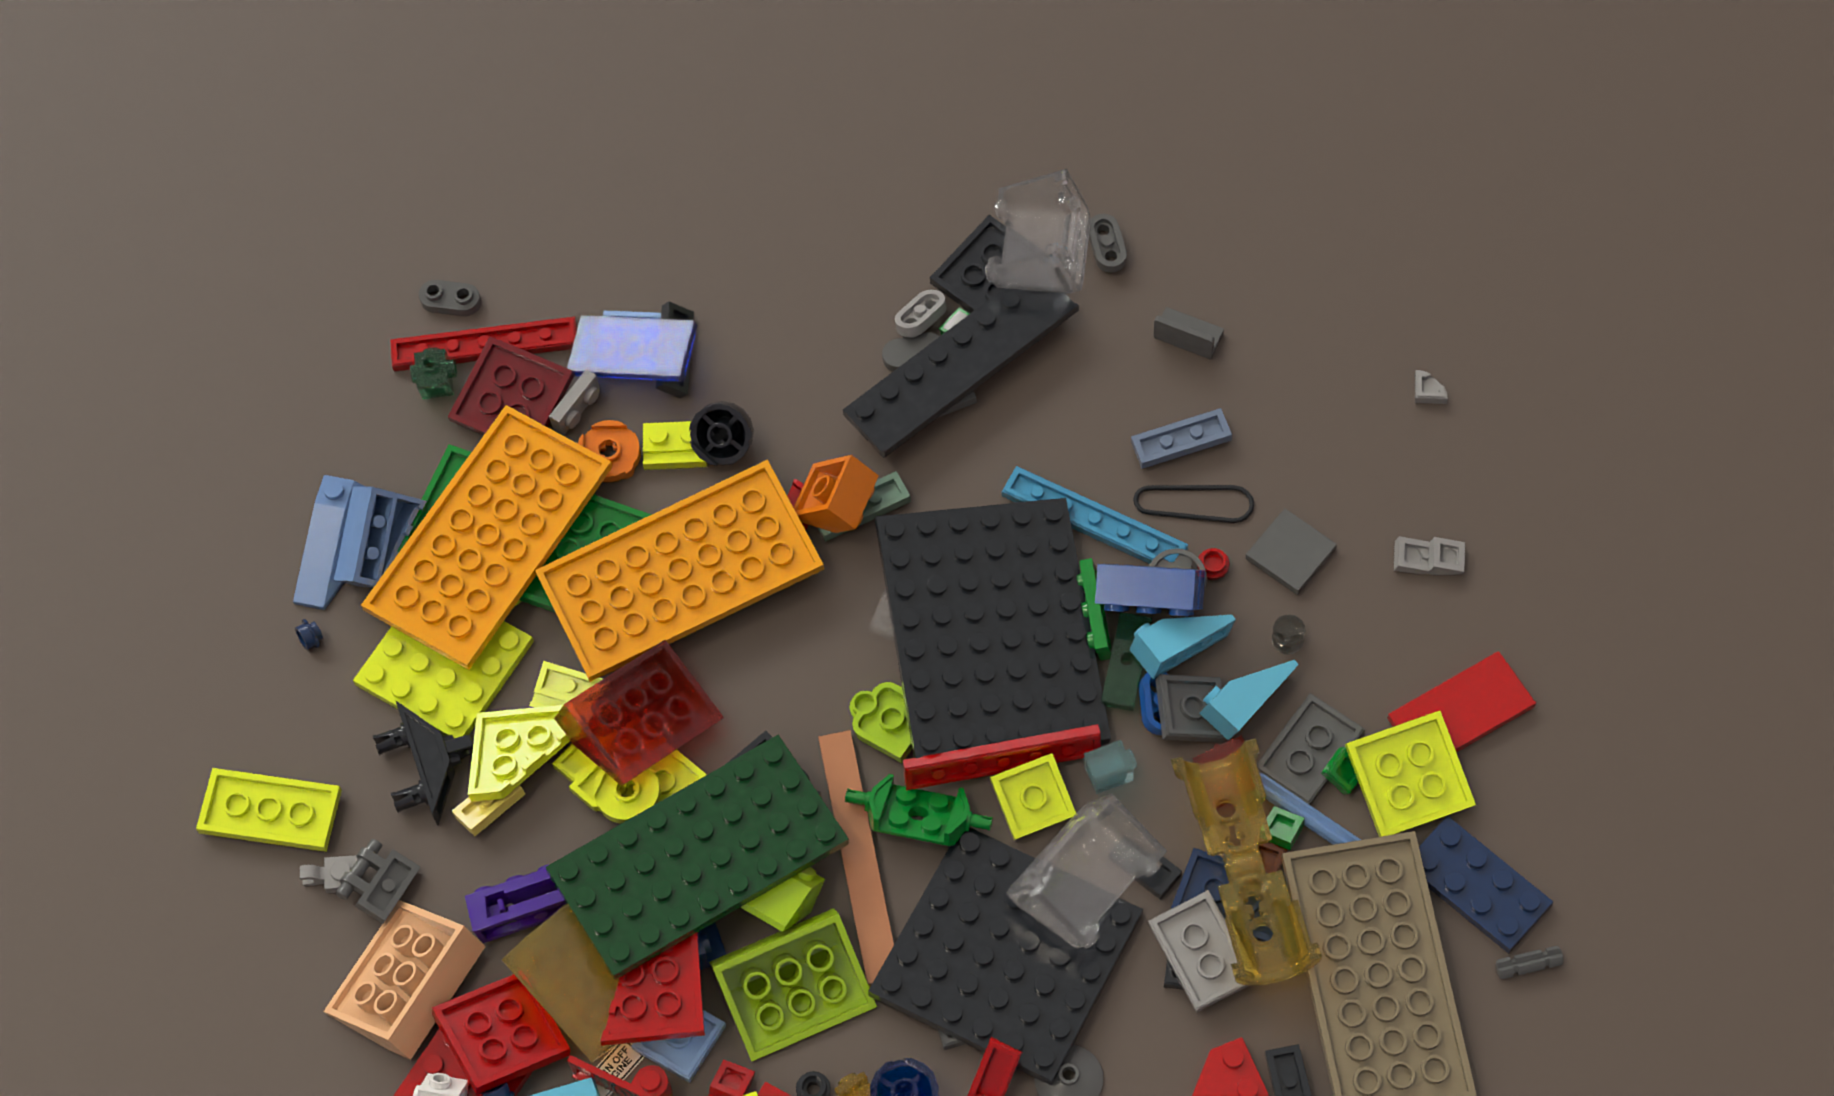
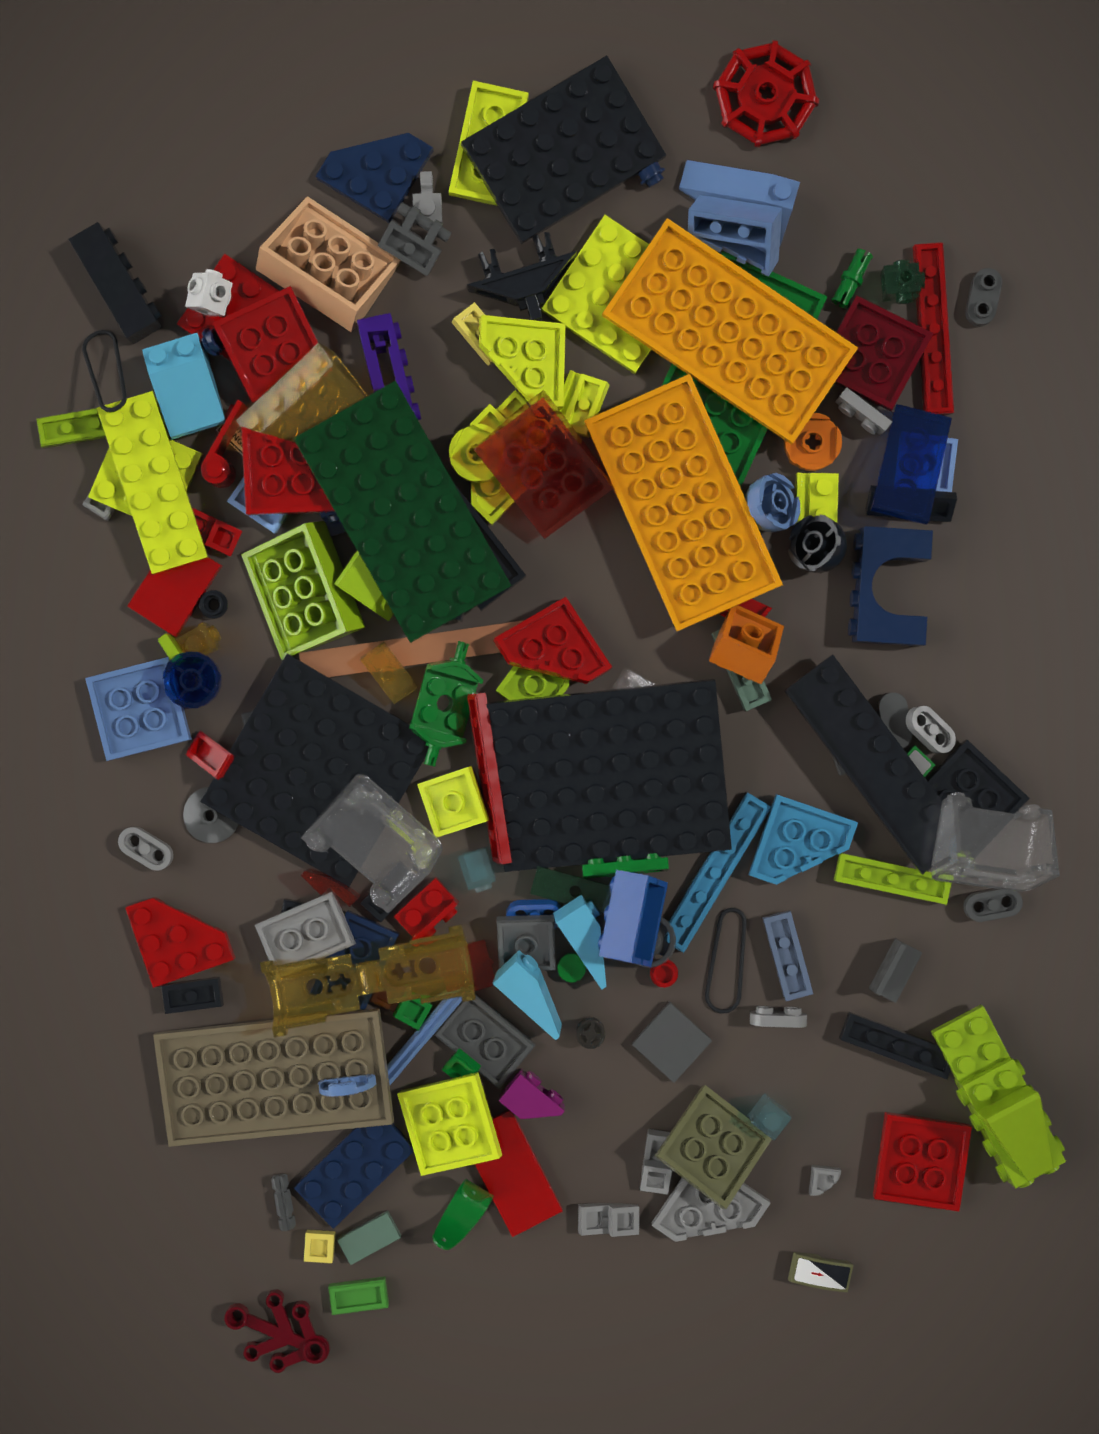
camera: 90 degrees right, 25 degrees up
(228, 539) = (766, 110): none -> red plate
(279, 726) = (563, 149): none -> black plate
(298, 934) = (376, 172): none -> dark blue plate
(428, 425) = (852, 278): none -> green pin
(677, 481) = (773, 503): none -> medium blue cylinder
(802, 381) = (870, 620): none -> dark blue arch
(845, 696) = (554, 645): none -> red plate
(885, 877) = (389, 672): none -> clear yellow plate
(1051, 436) = (798, 839): none -> dark azure plate
(1086, 341) = (890, 878): none -> lime plate
(1140, 935) = (322, 882): none -> clear red slope
(1166, 819) = (427, 909): none -> red bracket
(1216, 661) = (571, 967): none -> green tile
(1251, 454) = (790, 1017): none -> light grey plate
(1270, 324) = (894, 1044): none -> black plate
(1321, 218) = (999, 1099): none -> lime wedge
(1362, 442) = (769, 1116): none -> clear light blue brick
(1371, 693) = (529, 1099): none -> magenta slope
(1373, 883) = (346, 1085): none -> medium blue tile
(1395, 291) = (922, 1161): none -> red plate
(1402, 494) = (713, 1147): none -> olive plate
(1469, 500) = (693, 1214): none -> light grey plate
(1502, 603) = (609, 1218): none -> light grey slope
(1510, 757) = (461, 1215): none -> green piece
(1531, 382) = (820, 1272): none -> slope
(1559, 862) = (369, 1237): none -> sand green tile
(1576, 915) = (319, 1246): none -> light yellow plate
(1630, 870) = (358, 1295): none -> bright green tile
(1690, 953) = (281, 1333): none -> dark red plant

